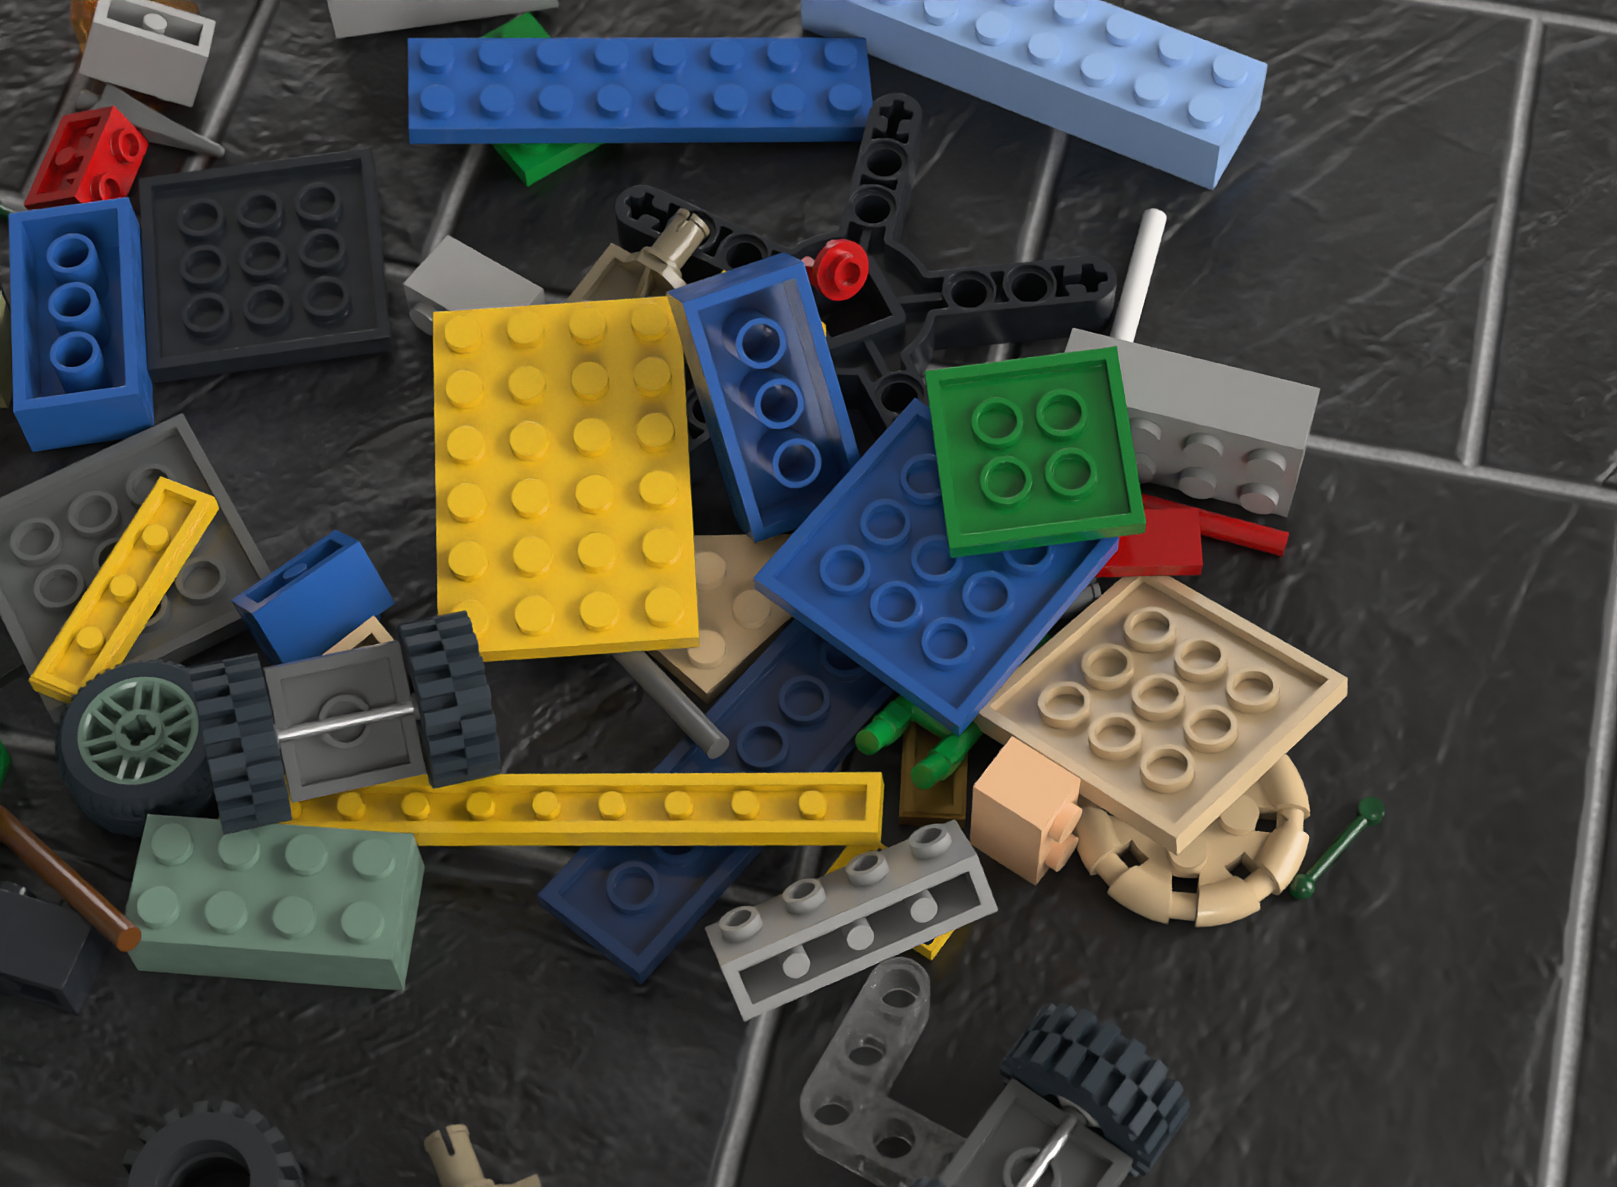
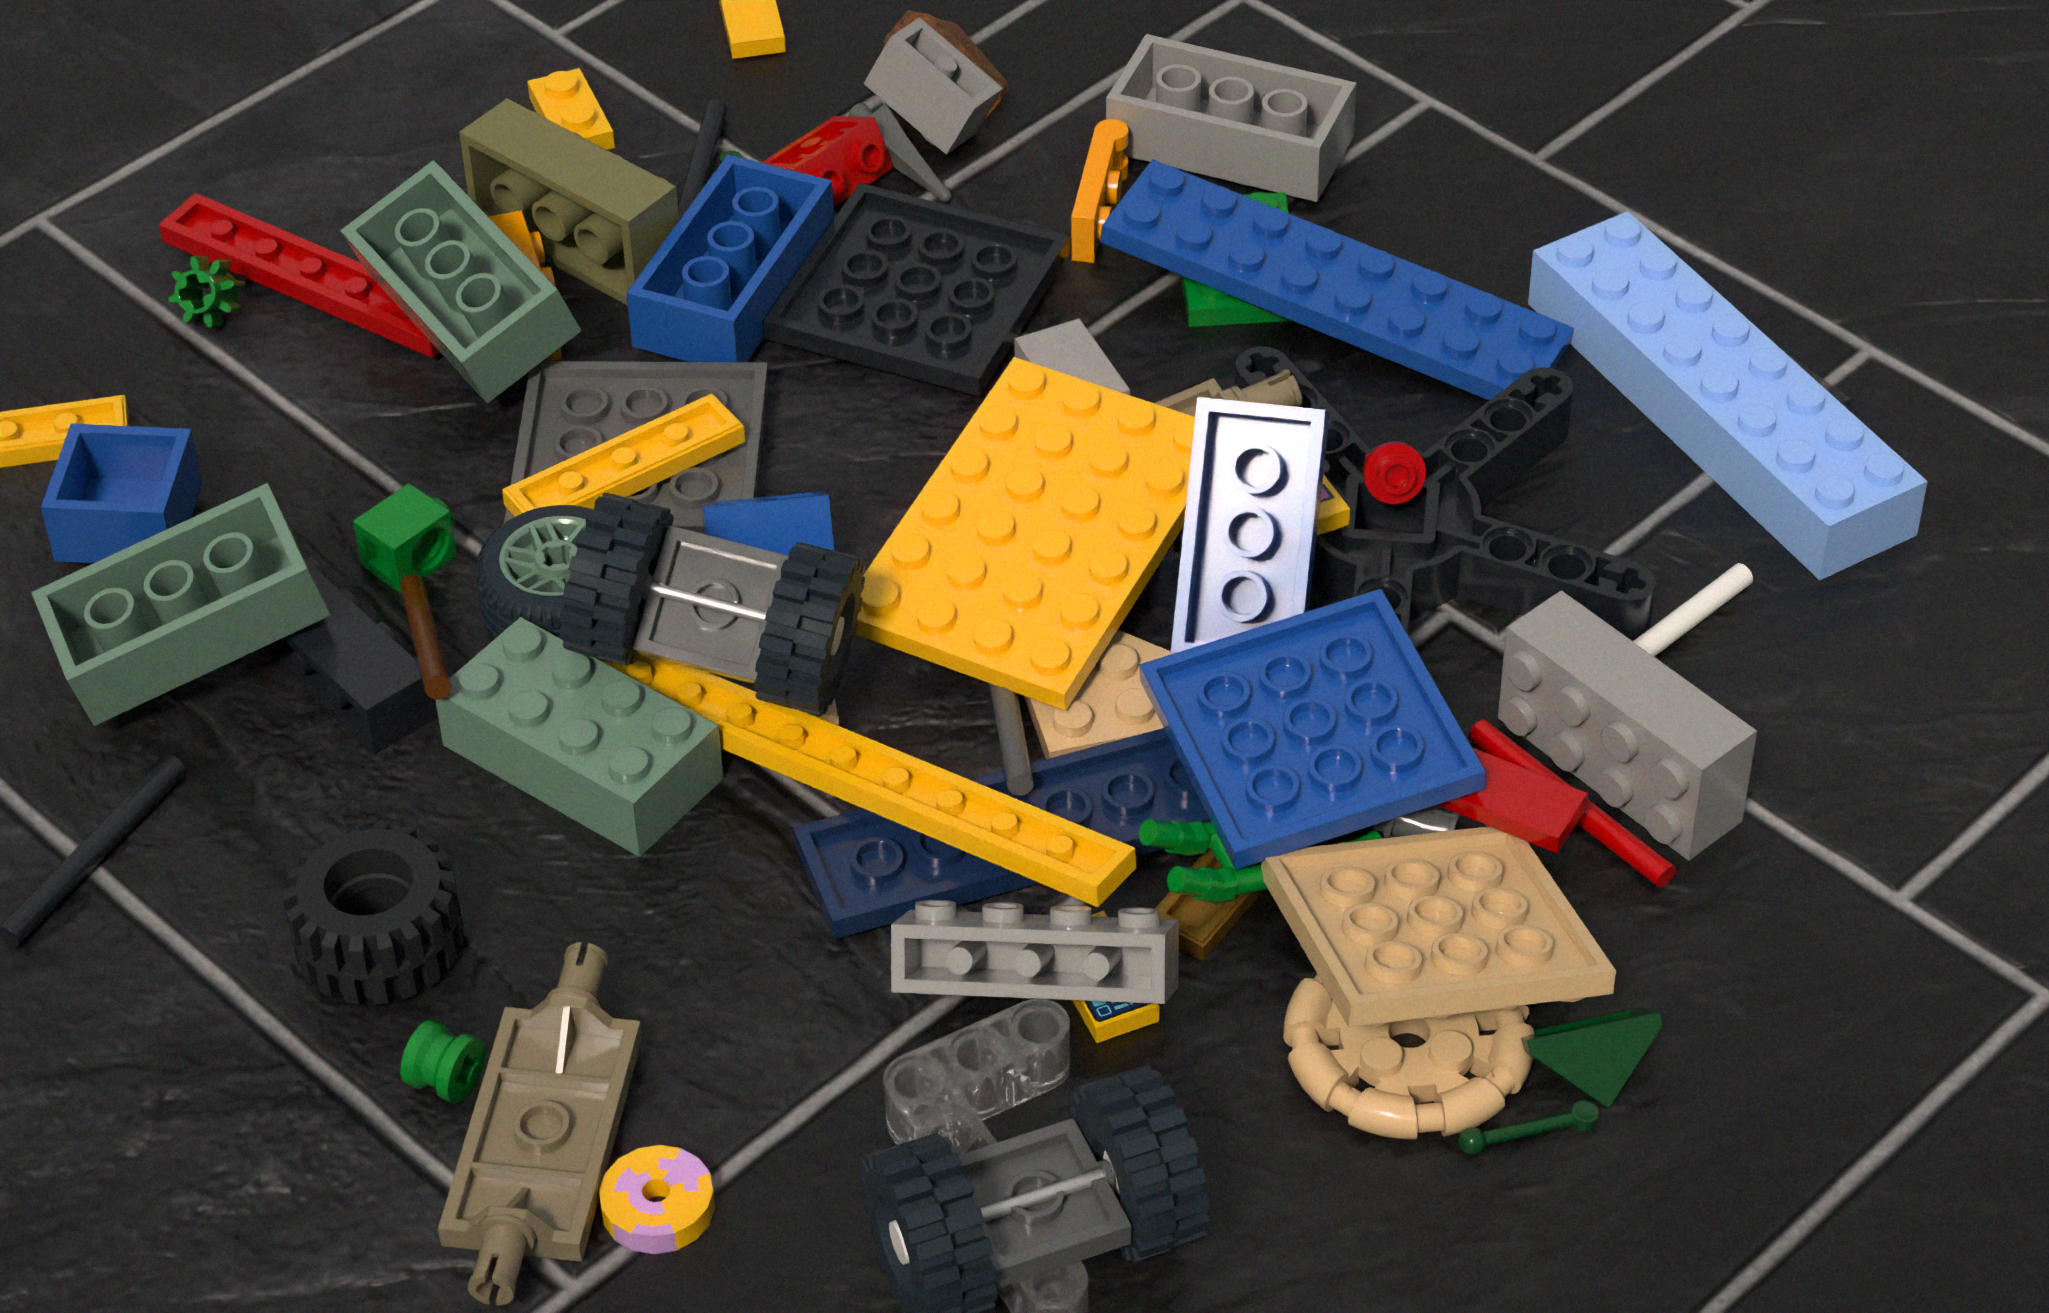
camera: 30 degrees right, 15 degrees down
(364, 84) = (1099, 187): none -> light orange plate
(1025, 812) = (1247, 947): light nougat brick -> none
(1034, 452) = (1447, 663): green plate -> none
(1347, 744) = (1595, 1051): none -> dark green slope

